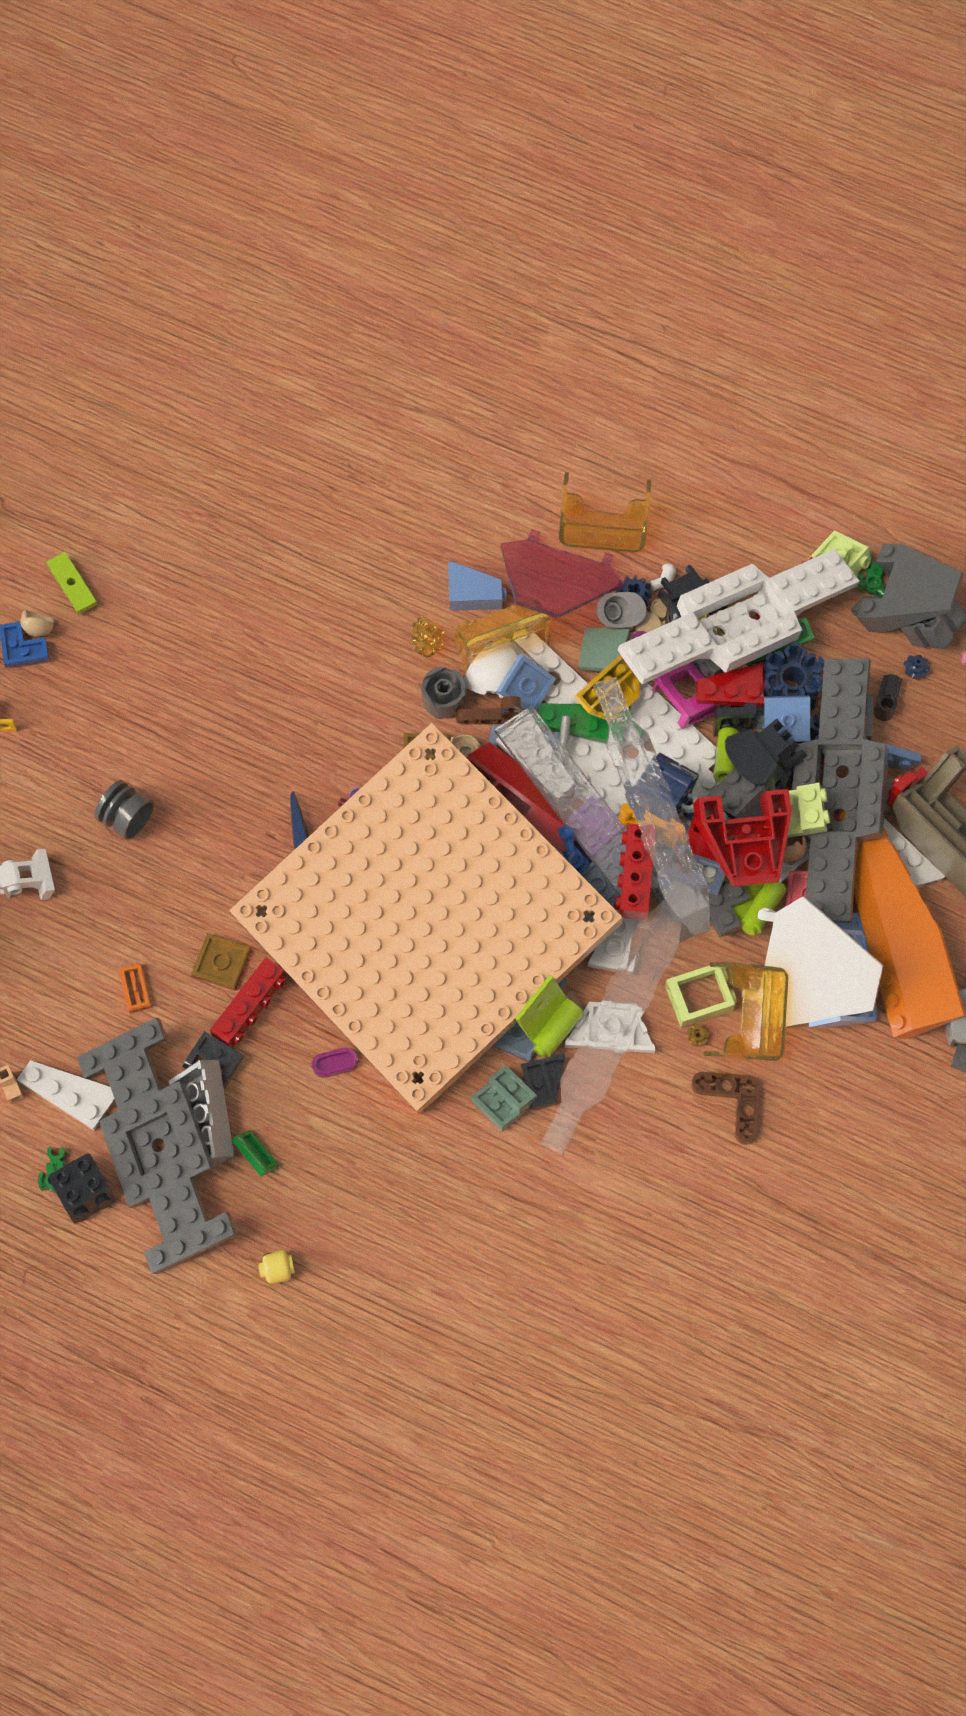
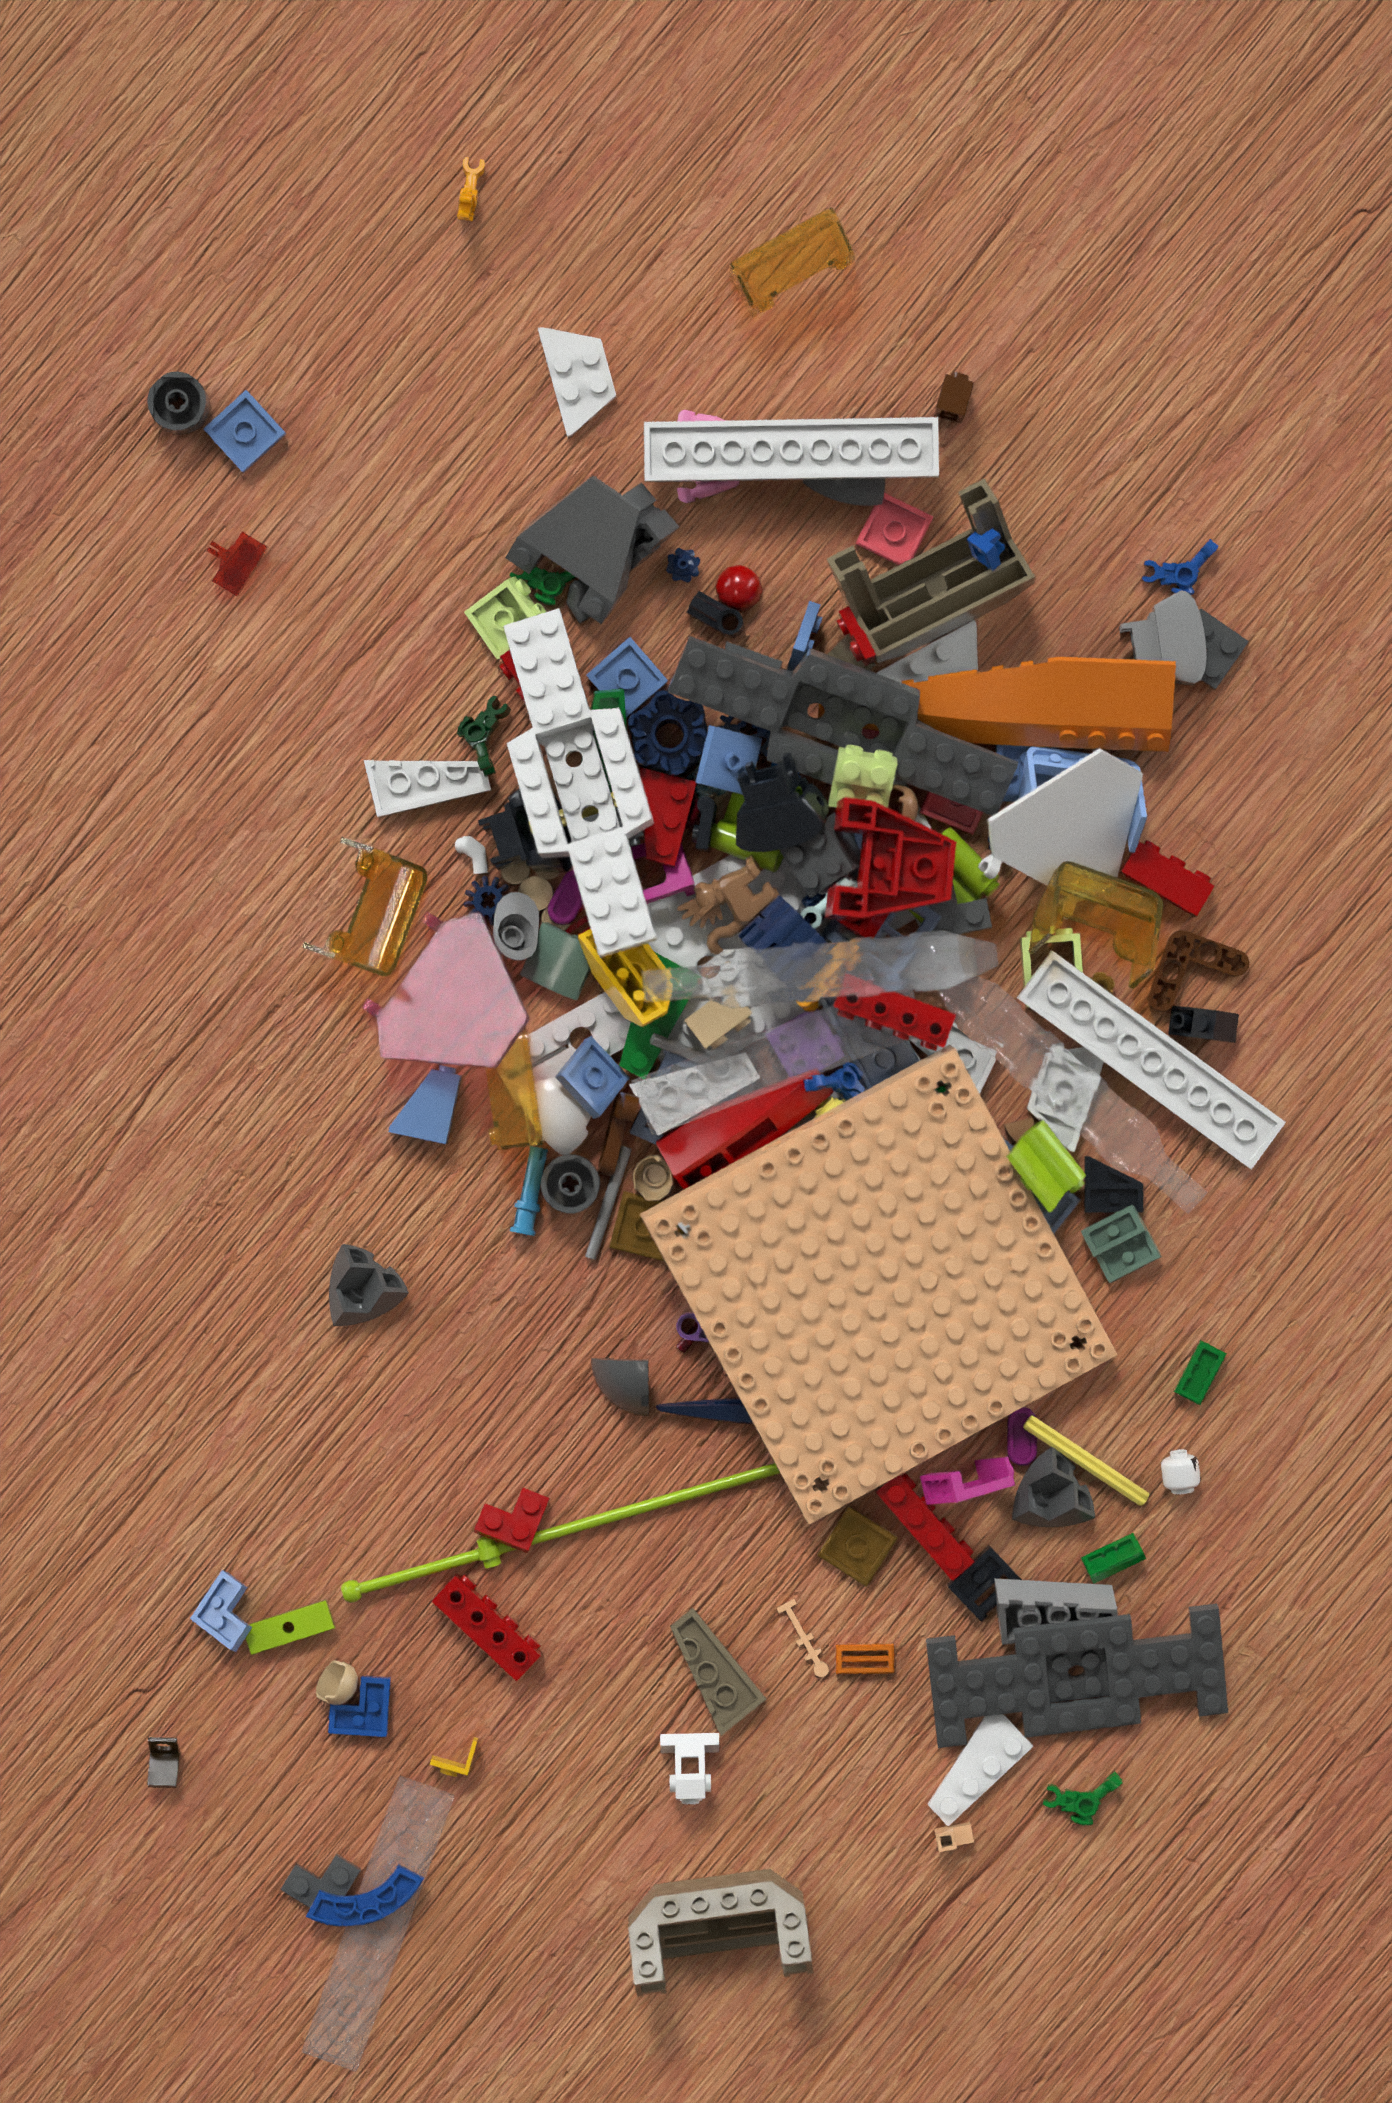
camera: 80 degrees left, 20 degrees up
(72, 532) = (216, 1614): none -> medium blue plate
(81, 1188) = (1105, 1775): black bracket -> none
(96, 887) = (720, 1678): none -> dark tan wing
(100, 714) = (486, 1626): none -> red brick
(120, 958) = (821, 1668): none -> light nougat piece
(124, 810) = (633, 1625): dark grey wheel -> none
(158, 704) = (490, 1551): none -> lime bar
(180, 718) = (516, 1528): none -> red plate
(276, 1267) = (1259, 1564): light yellow head -> none
(278, 1001) = (948, 1486): none -> dark pink window
(295, 1093) = (1052, 1494): none -> dark grey brick
(304, 764) = (624, 1382): none -> dark grey brick
(327, 1113) = (1086, 1460): none -> light yellow axle
(330, 574) = (362, 1287): none -> dark grey brick
(335, 1187) = (1180, 1472): none -> white head
(418, 1184) = (1200, 1372): none -> green plate
(419, 670) = (527, 1205): none -> dark azure pin
(423, 637) = (482, 1188): clear yellow piece -> none
(441, 726) = (607, 1204): none -> light grey bar
(593, 757) = (715, 1020): none -> tan brick
(652, 1083) = (1151, 1059): none -> white plate
(690, 748) = (739, 897): none -> medium nougat animal
(692, 1118) = (1203, 1024): none -> black slope
(704, 533) = (416, 784): none -> white wing
(752, 555) = (478, 732): none -> dark green piece
(796, 1063) = (1168, 878): none -> red brick
(820, 382) = (237, 562): none -> clear red plate
(828, 643) = (631, 670): none -> medium blue plate
(912, 366) = (244, 431): none -> medium blue plate
(912, 709) = (739, 587): none -> red hair
(917, 319) = (189, 416): none -> dark grey brick

